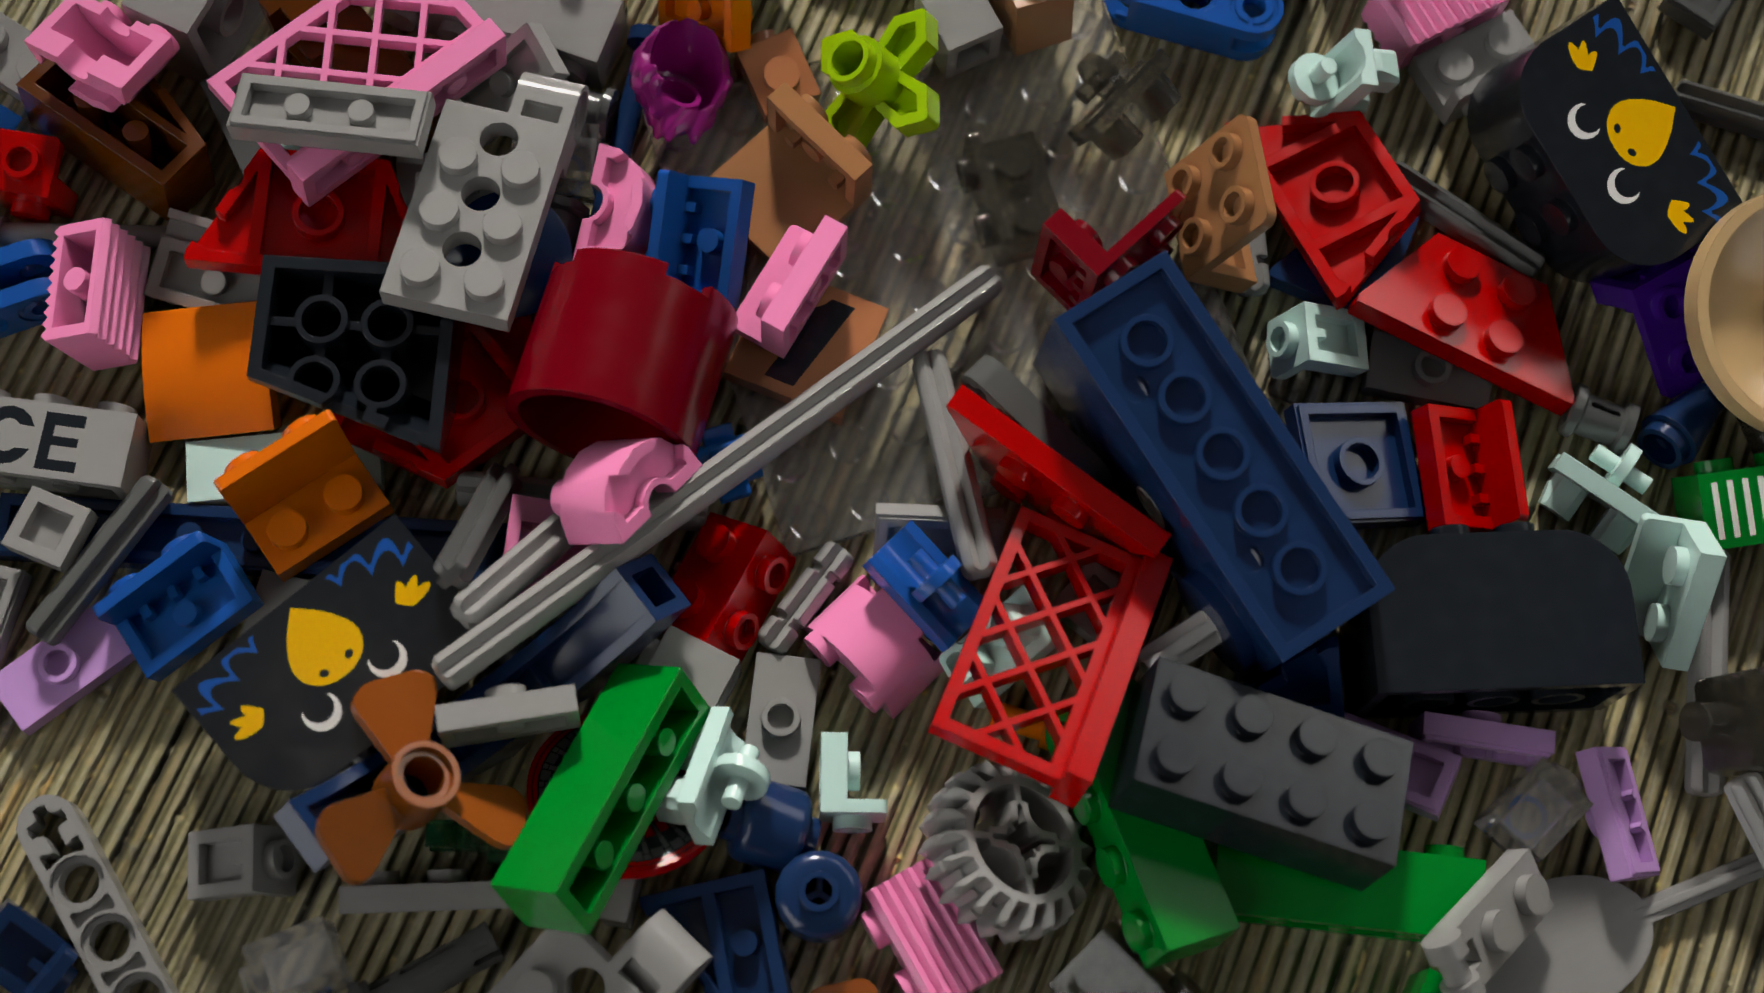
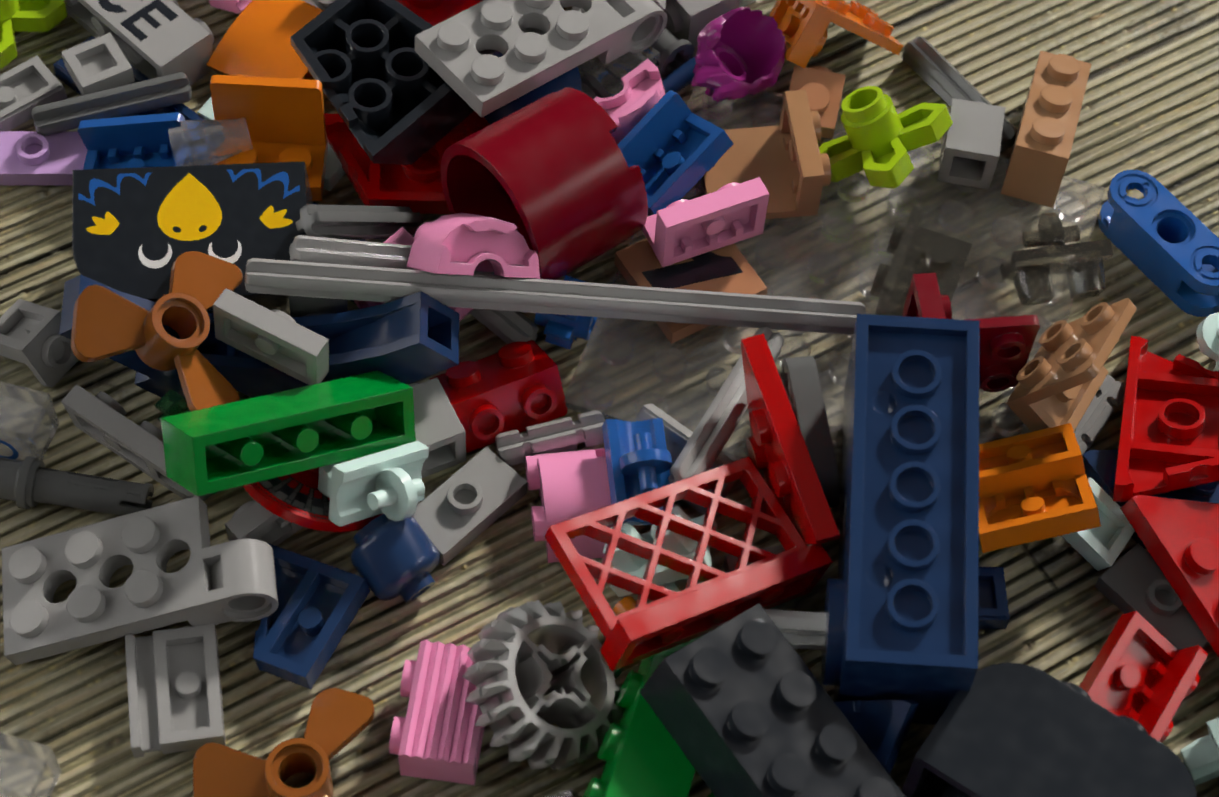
camera: 40 degrees right, 15 degrees down
(250, 542) = (209, 141): none -> clear cone
(813, 921) = (386, 624): dark blue head -> none
(838, 774) = (466, 567): light aqua bracket -> none
(1278, 338) = (1033, 489): none -> orange slope
(1363, 459) = (1045, 617): dark blue plate -> none

